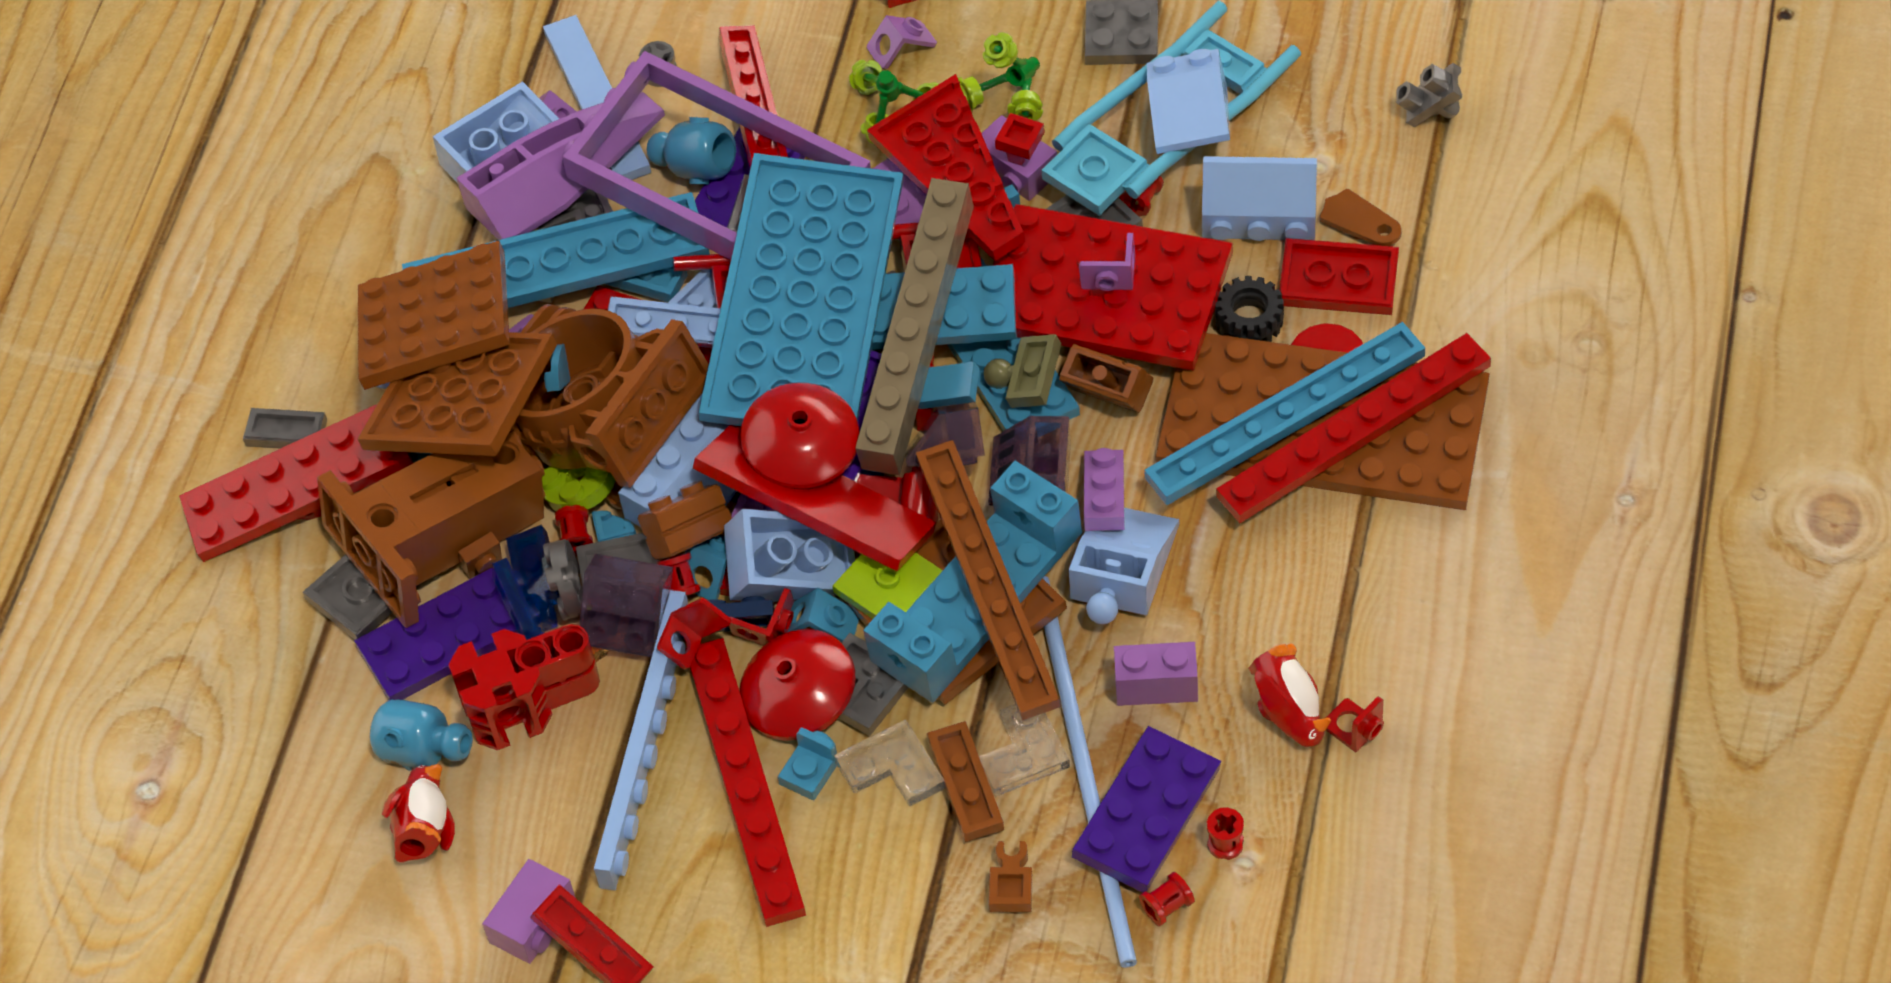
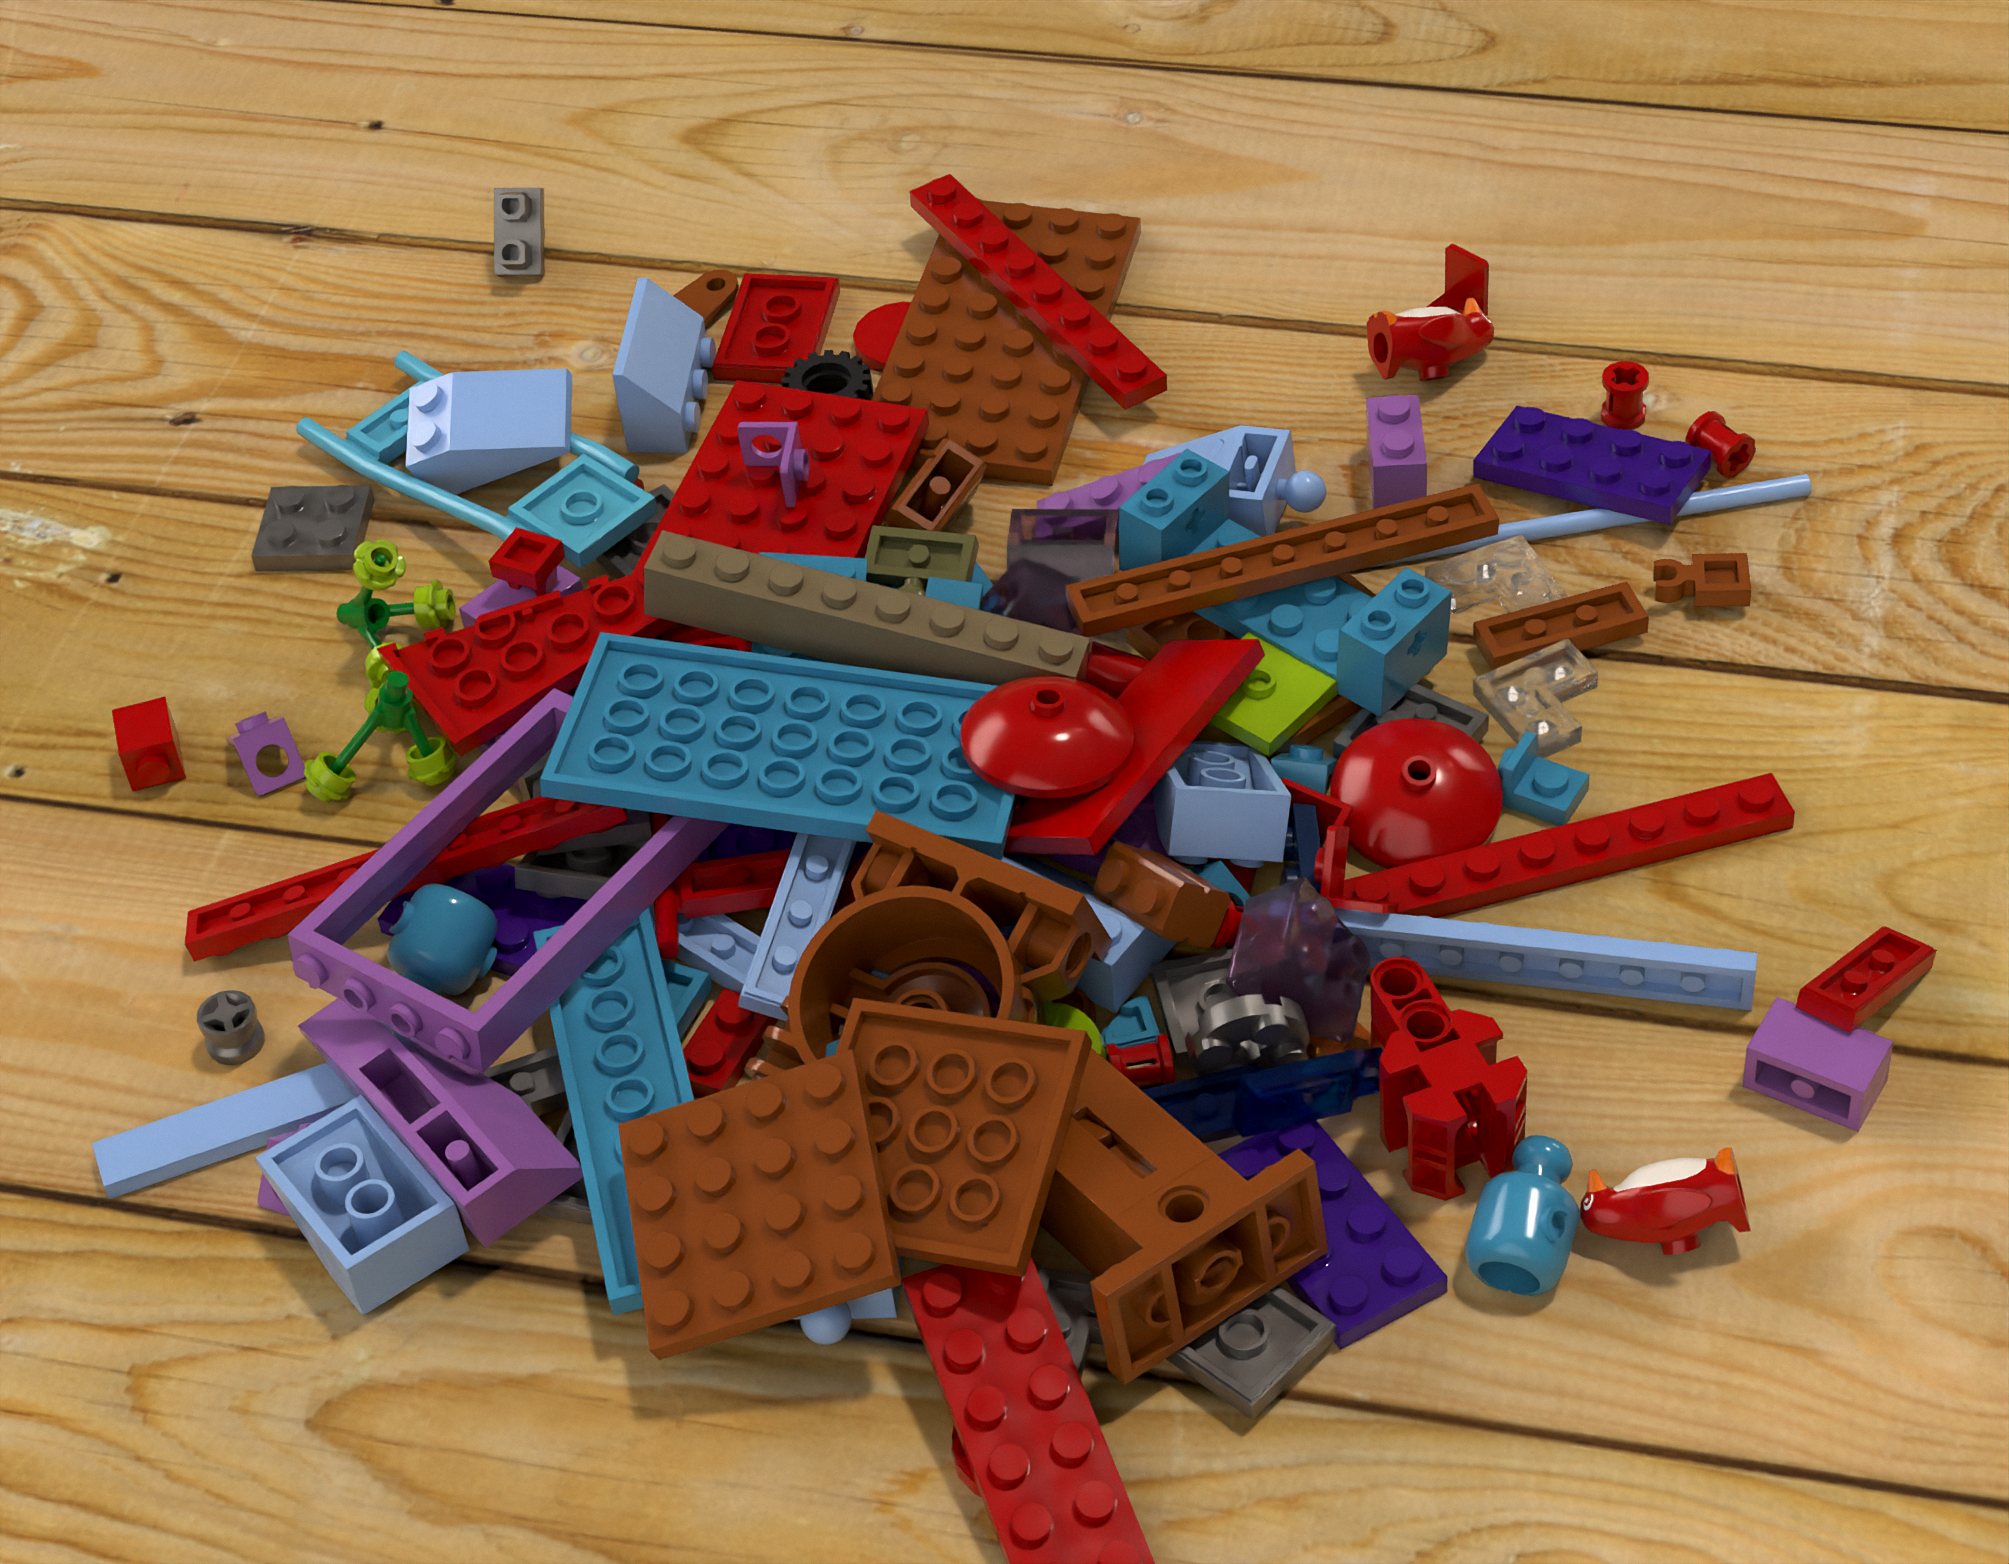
camera: 90 degrees left, 10 degrees down
(280, 427) = (897, 1491): flat silver tile -> none
(1284, 413) = (1017, 340): dark azure plate -> none

